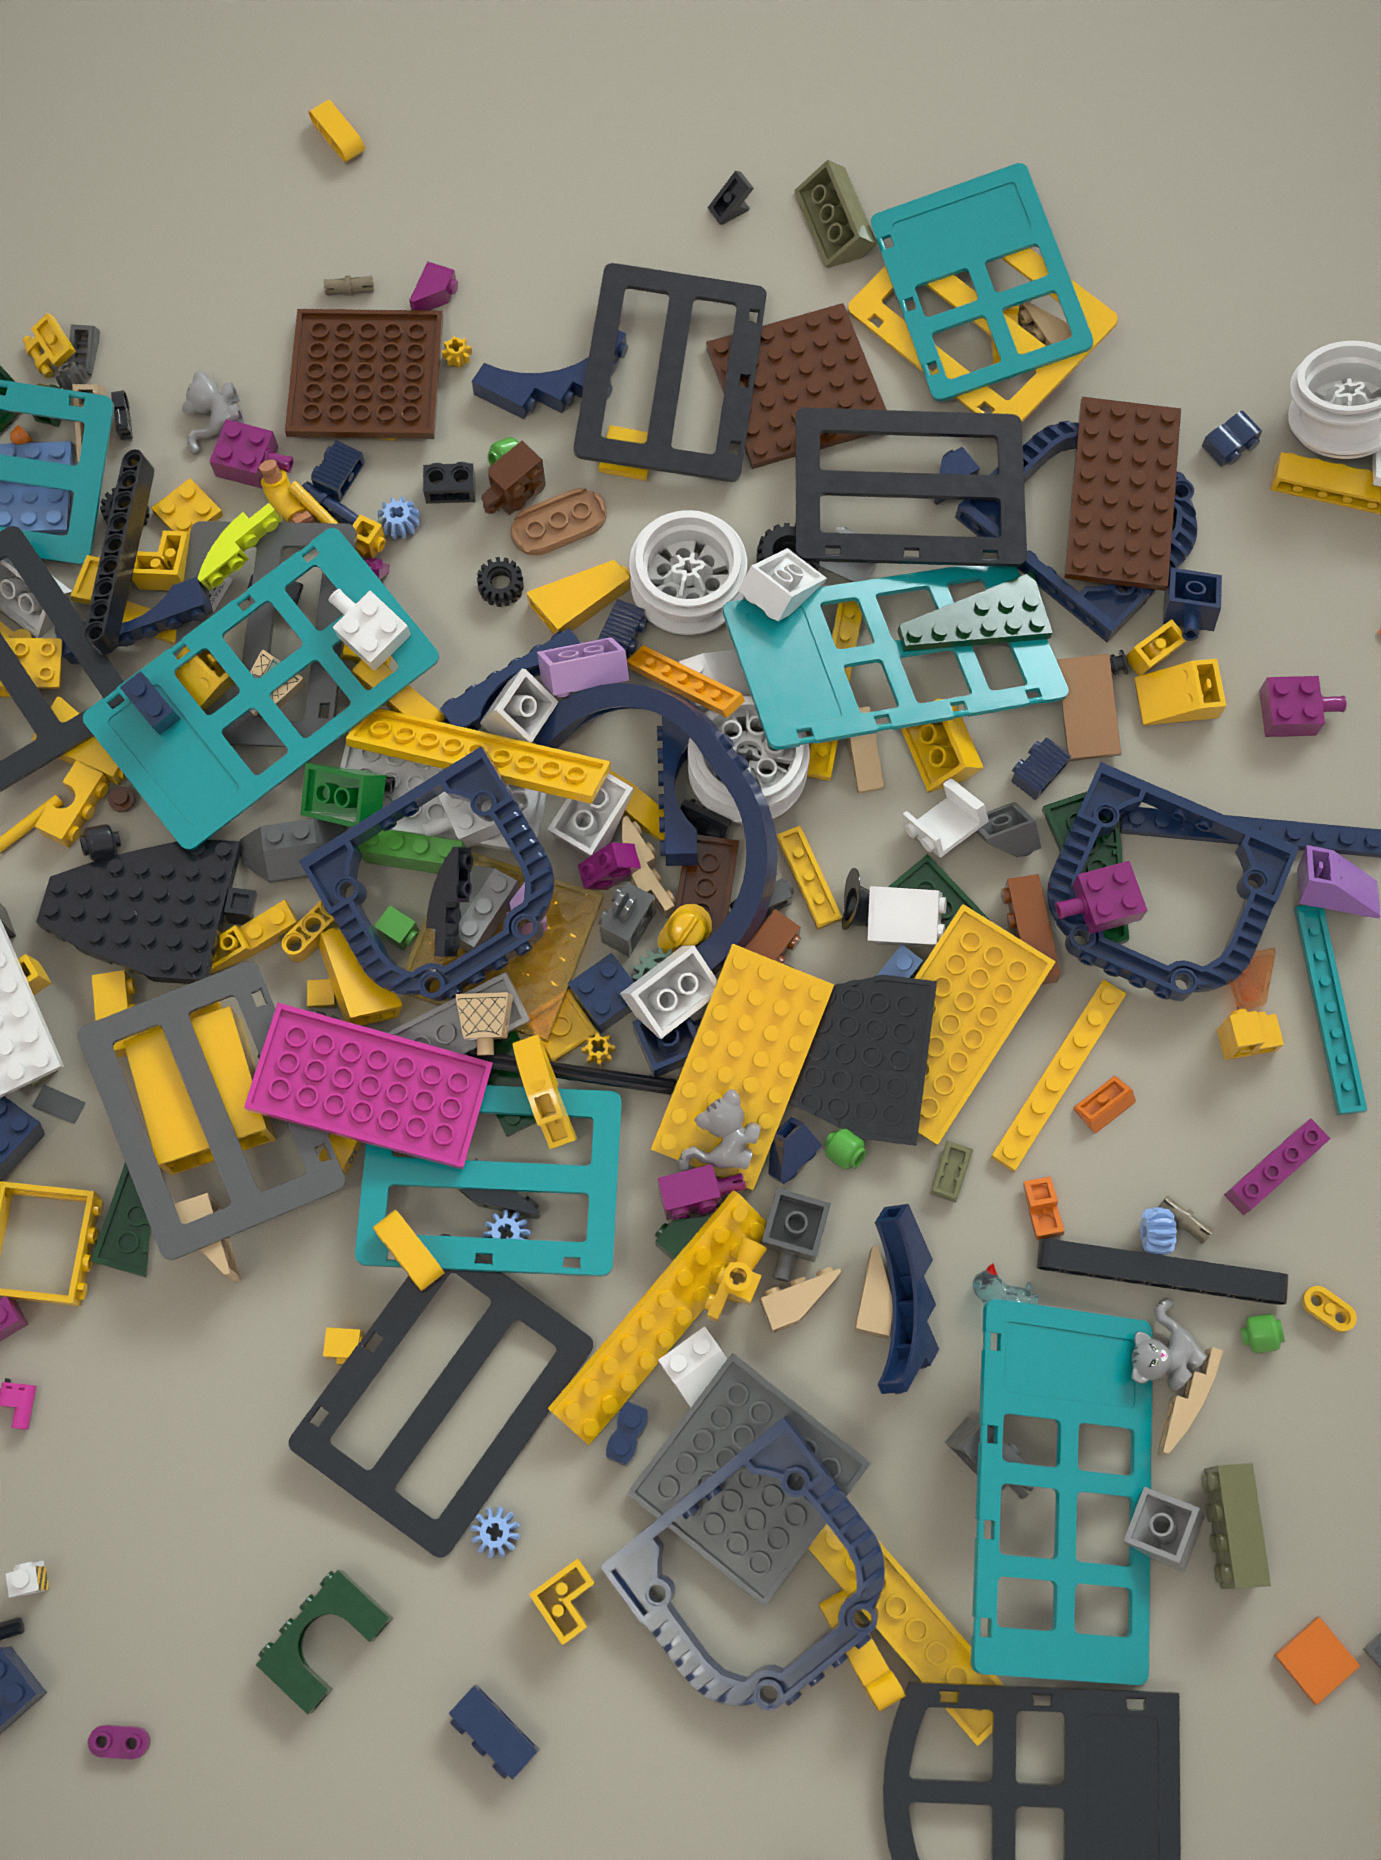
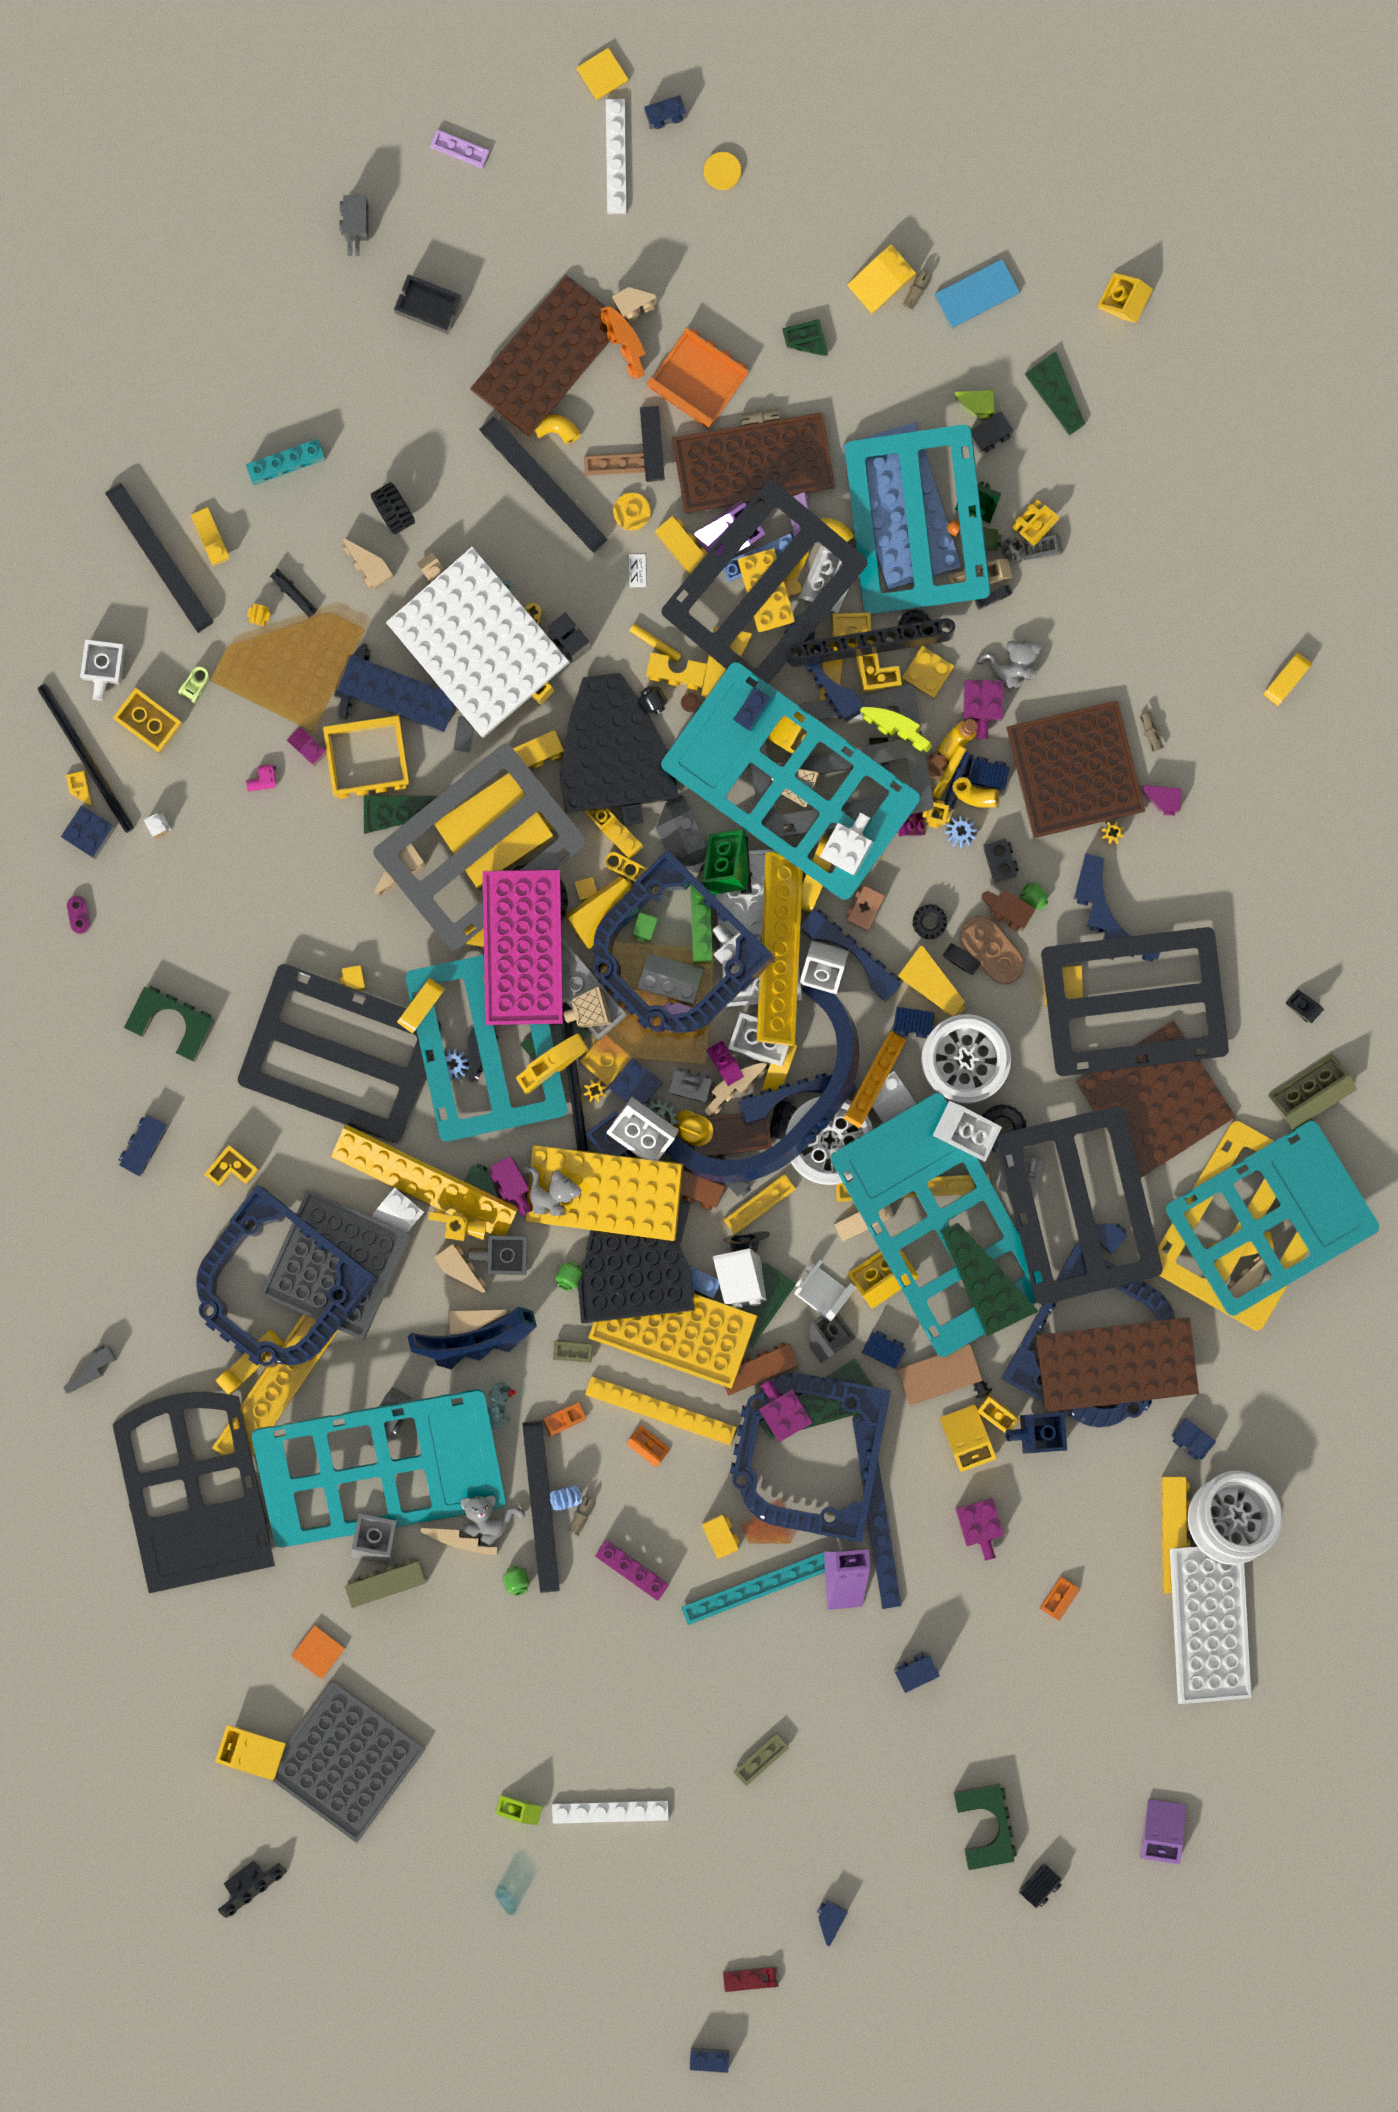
camera: 80 degrees right, 15 degrees up
(360, 490) = (976, 796): none -> yellow cylinder
(449, 889) = (666, 962): black slope -> none
(460, 651) = (865, 919): none -> nougat brick
(488, 1539) = (266, 1117): light blue gear -> none
(559, 551) = (961, 959): none -> black tyre
(582, 666) = (868, 1004): lavender brick -> none
(630, 1426) = (337, 1179): dark blue brick -> none
(791, 1149) = (558, 1240): dark blue slope -> none
(1327, 1309) = (544, 1622): yellow plate -> none

